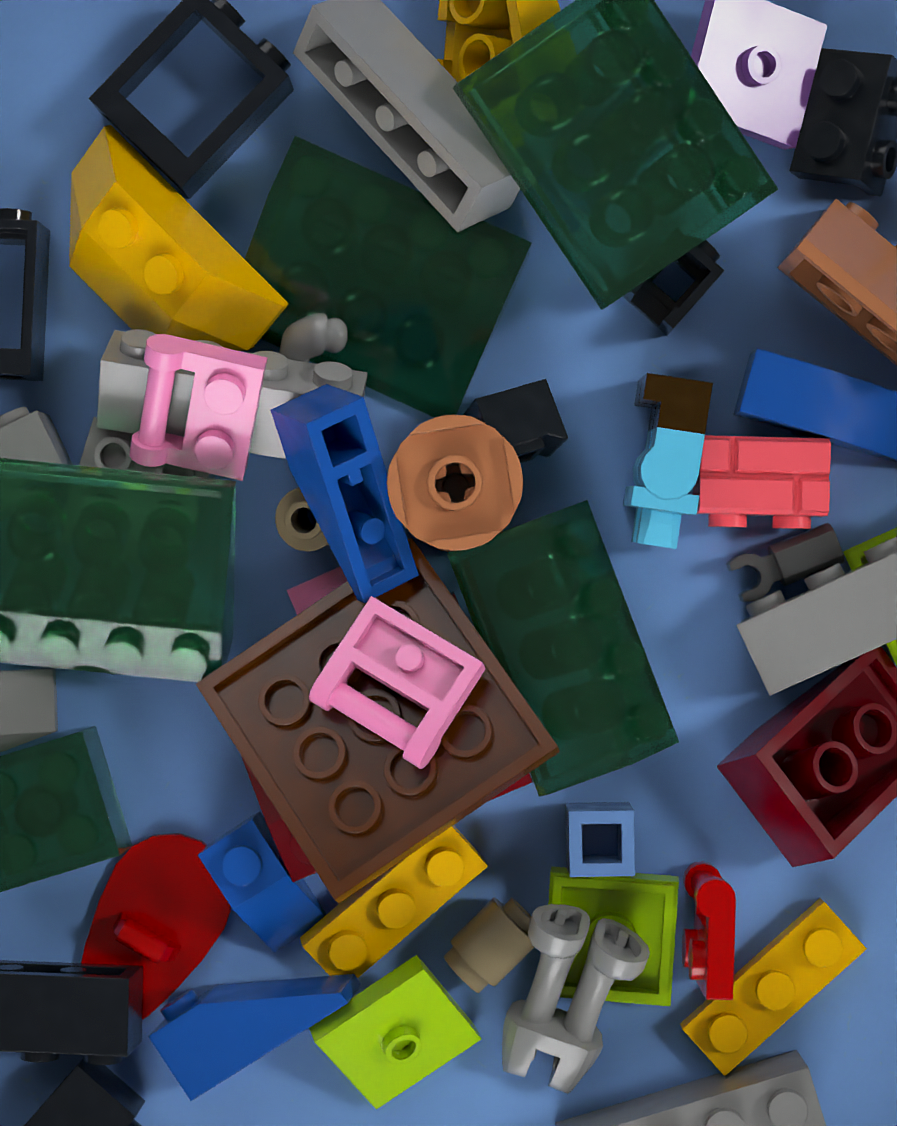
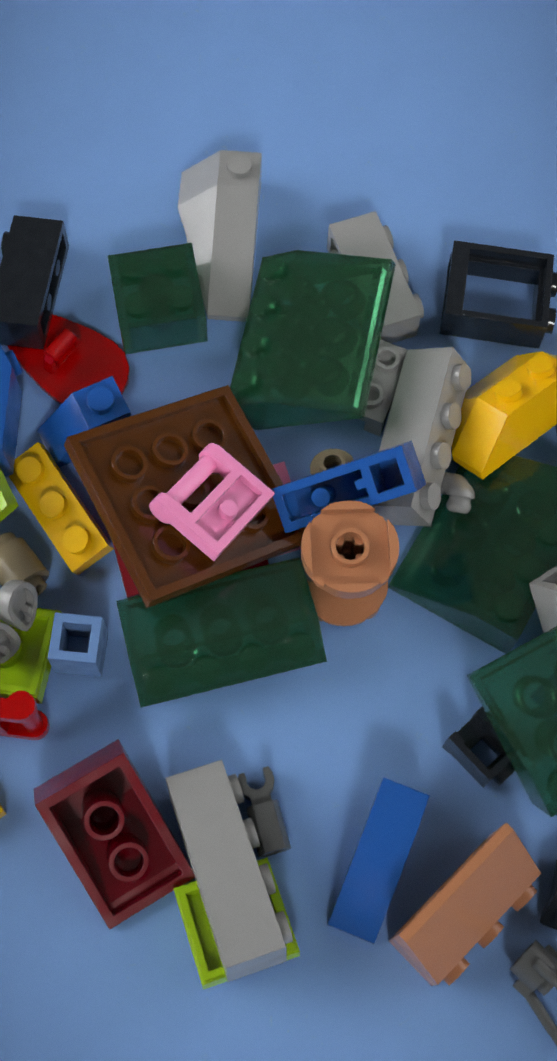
camera: 90 degrees right, 20 degrees down
(219, 413) = (416, 417): bright pink plate -> none
(524, 418) = (385, 619): black window -> none
(670, 458) = (350, 723): medium azure hips -> none
(764, 478) = (330, 797): coral brick -> none

